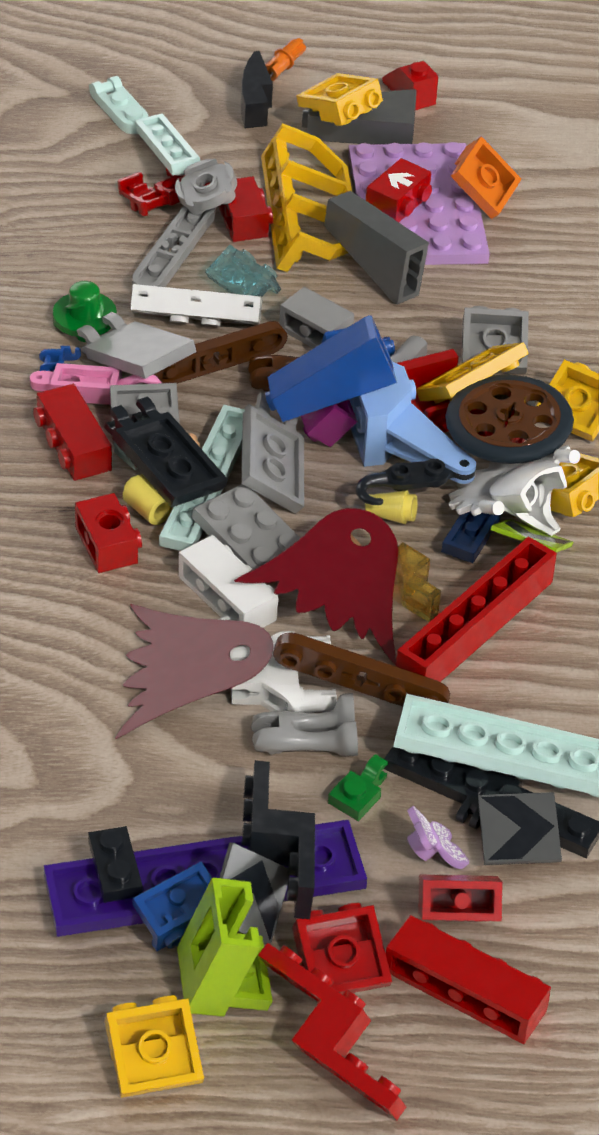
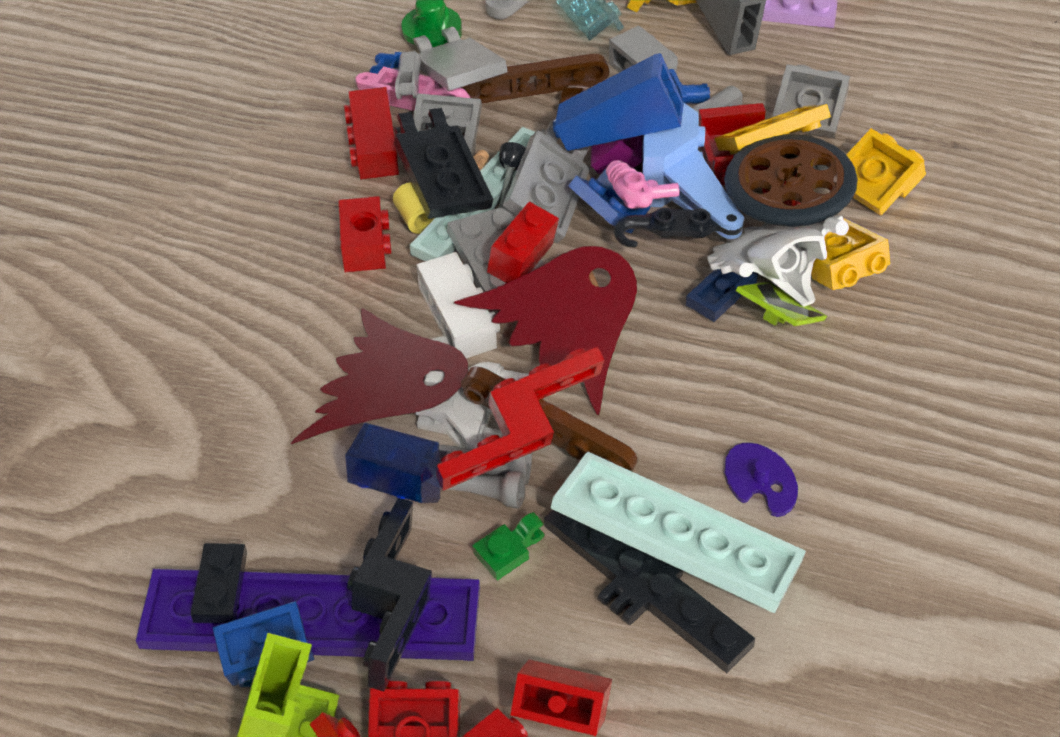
camera: 20 degrees right, 5 degrees up
(92, 368) = (408, 75): none -> light grey bar
(181, 306) = (527, 28): white piece -> none
(229, 437) = (510, 158): none -> black hinge
(240, 731) = (394, 464): none -> clear blue slope
(268, 886) = (338, 646): dark grey piece -> none
(279, 517) = (522, 243): none -> red brick
(338, 461) = (604, 199): none -> blue bracket
(344, 670) = (519, 417): none -> red bracket
(362, 446) = (634, 188): none -> bright pink piece
(396, 506) = (653, 250): light yellow cone -> none
(413, 584) = (644, 328): clear yellow slope -> none
(434, 838) = (562, 618): lavender animal -> none
(479, 612) = (693, 377): red brick -> none
(519, 828) = (657, 627): dark grey piece -> none
(555, 687) = (754, 470): none -> dark purple piece

